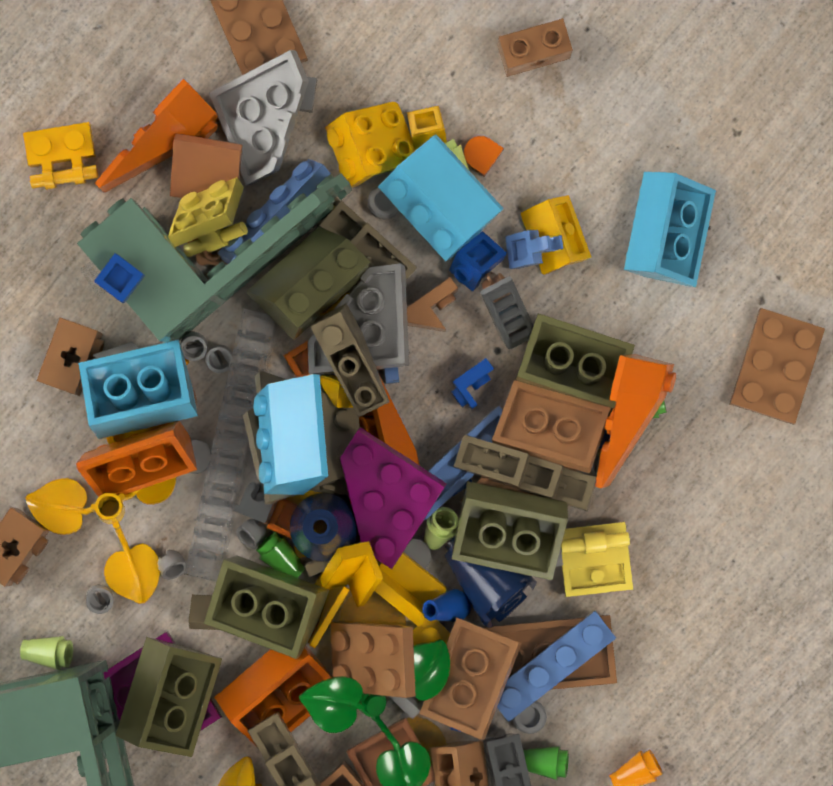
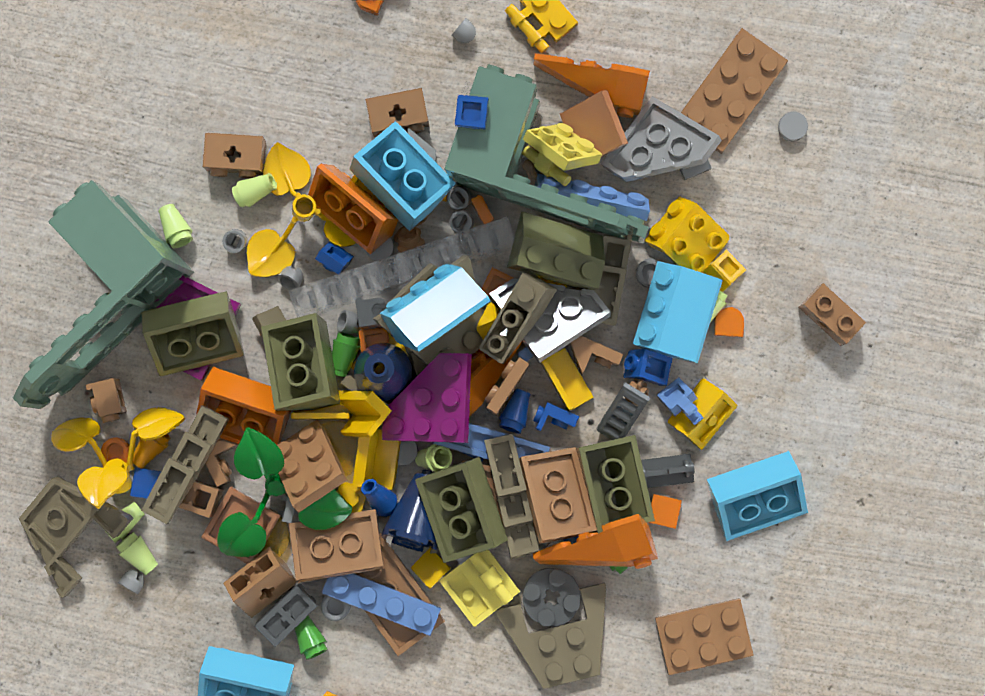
camera: 60 degrees right, 0 degrees up
(29, 240) = (465, 32): none -> light grey hinge
(59, 549) = (251, 190): none -> yellowish green cone
(178, 509) = (334, 258): none -> blue plate
(205, 423) = (408, 239): none -> medium nougat plate
(220, 331) = (482, 210): none -> orange tile
(321, 752) = (219, 468): none -> medium nougat slope
(407, 401) = (499, 395): none -> medium nougat plate
(441, 349) = (566, 379): none -> yellow panel
(444, 420) = (515, 413): none -> blue cone
(548, 598) = (430, 568): none -> yellow slope
(592, 301) = (668, 470): none -> dark grey hinge
(630, 328) = (665, 510): none -> orange tile
(634, 507) = (546, 613): none -> dark grey plate
(709, 513) = (562, 651): none -> dark tan wing

